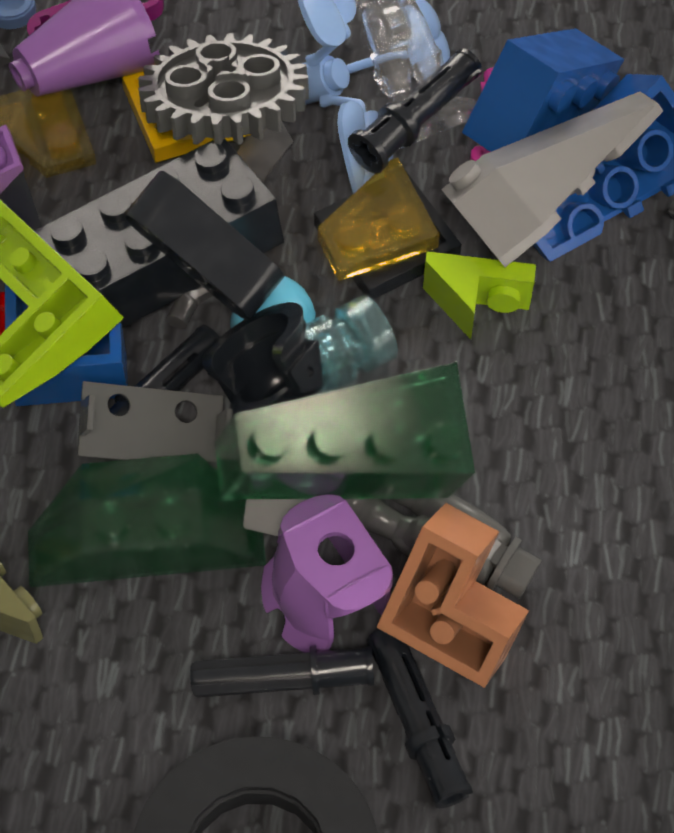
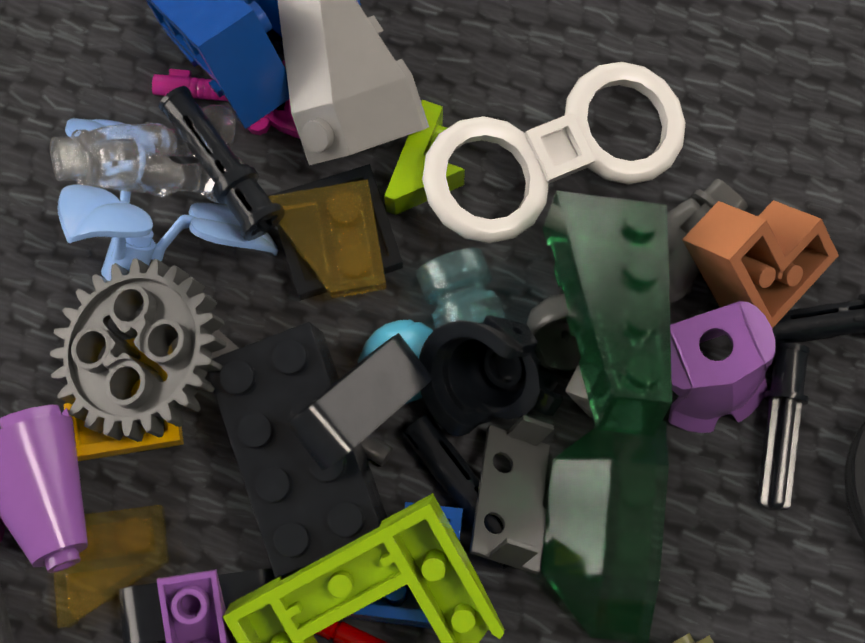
camera: 75 degrees left, 15 degrees up
(528, 399) = (553, 151): none -> white bar

